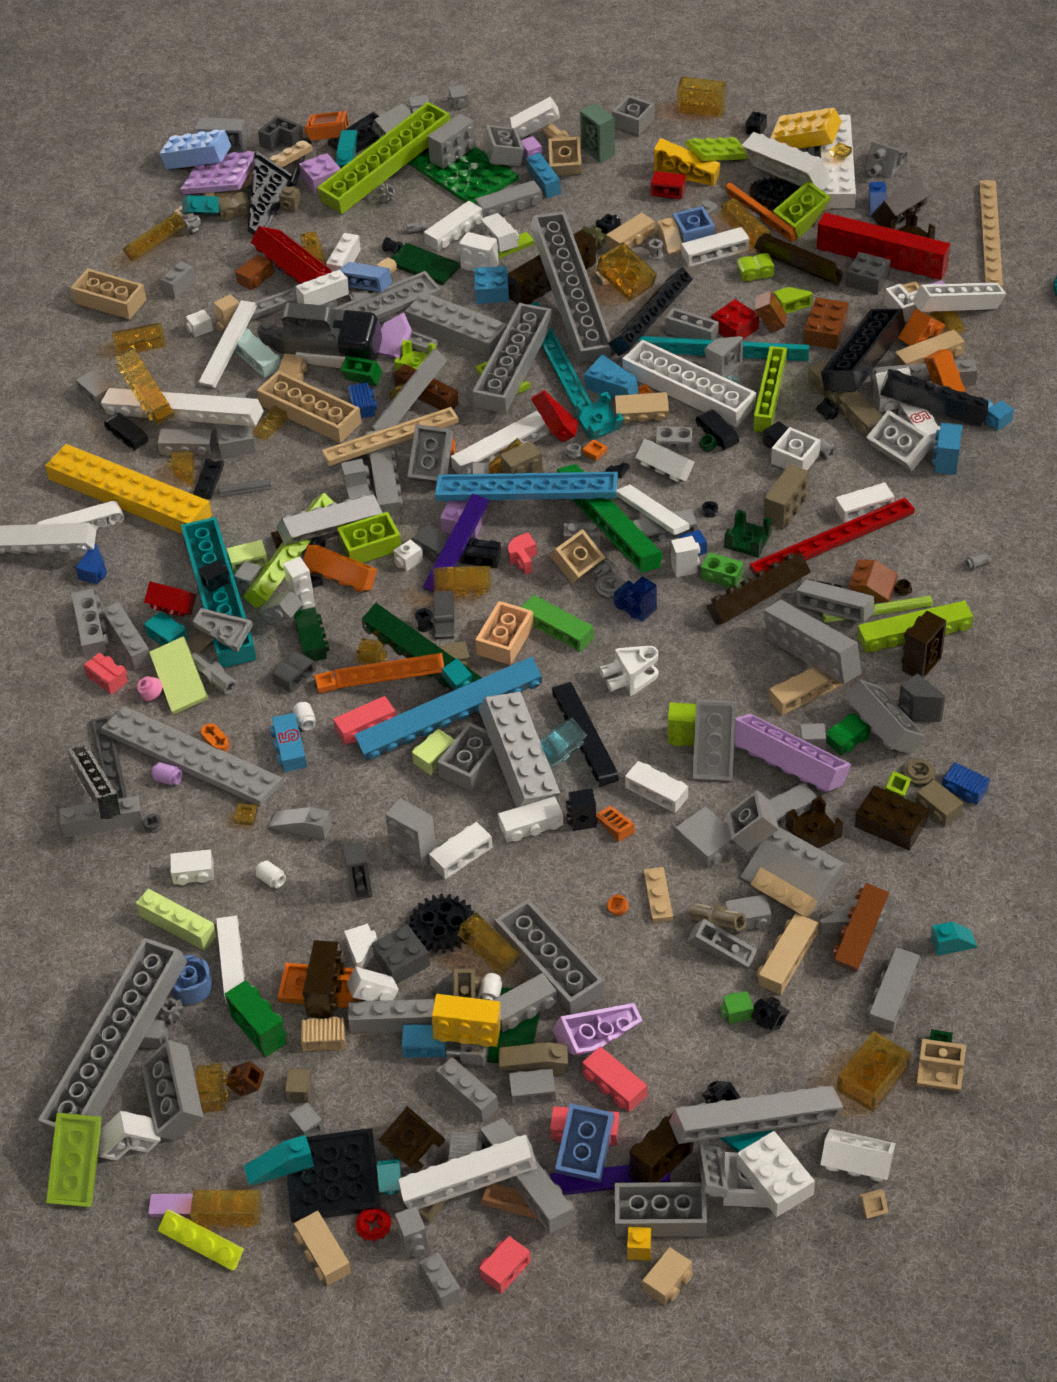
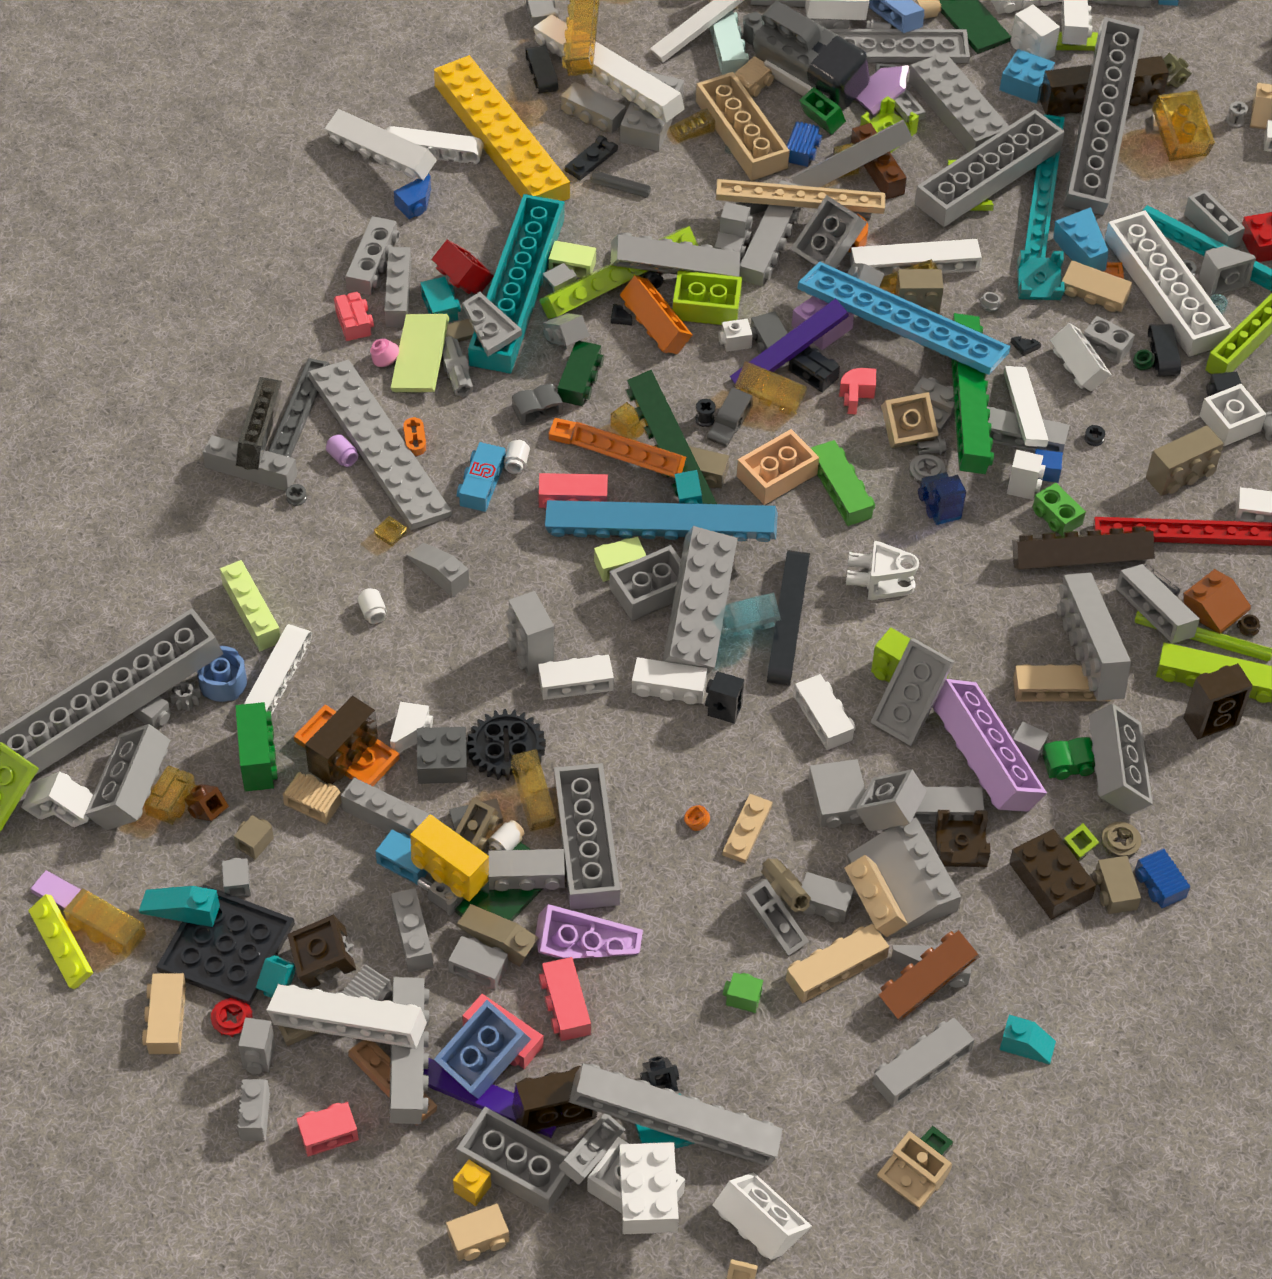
camera: 25 degrees right, 5 degrees up
(183, 466) = (573, 133): clear yellow slope -> none
(192, 867) = (302, 559): white brick -> none
(214, 575) = (517, 264): black brick -> none
(299, 581) = (597, 313): white brick -> none
(357, 871) = (450, 646): dark grey brick -> none
(371, 985) = (387, 773): white brick -> none
(556, 418) = (990, 254): red slope -> none
(594, 450) = (1013, 311): orange plate -> none
(609, 222) = (1203, 64): black brick -> none
(619, 834) = (755, 743): orange slope -> none
(632, 232) = (1222, 84): tan brick -> none
(650, 311) = (1178, 182): black brick -> none
(747, 537) = (1115, 485): dark green panel -> none
(769, 1013) = (772, 1016): black brick -> none
(873, 1071) = (837, 1137): clear yellow brick -> none
(921, 700) = (1173, 760): dark grey slope -> none

